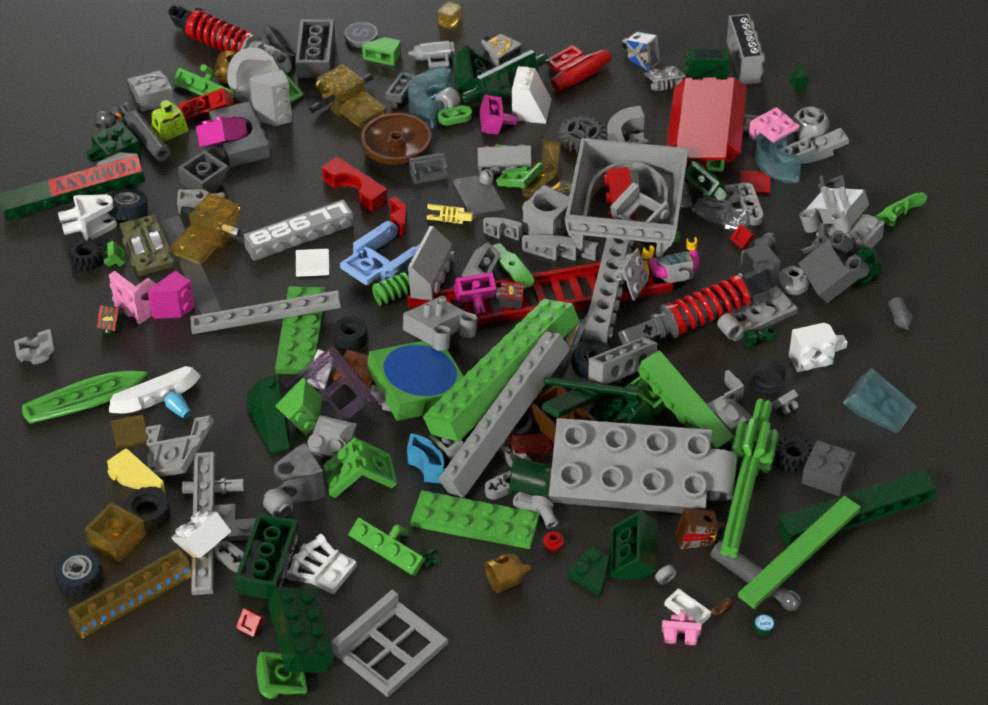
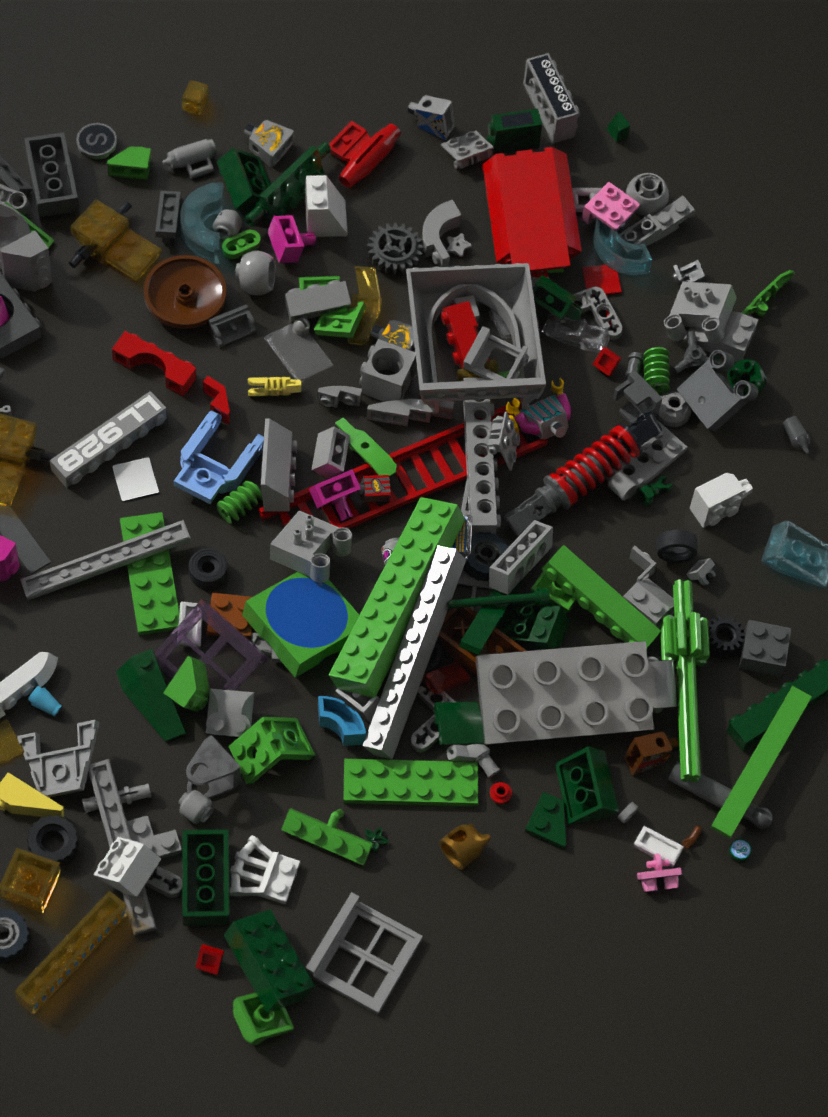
camera: 20 degrees left, 15 degrees up
(459, 132) = (256, 273): none -> light grey wheel
(786, 246) = (657, 368): none -> bright green piece

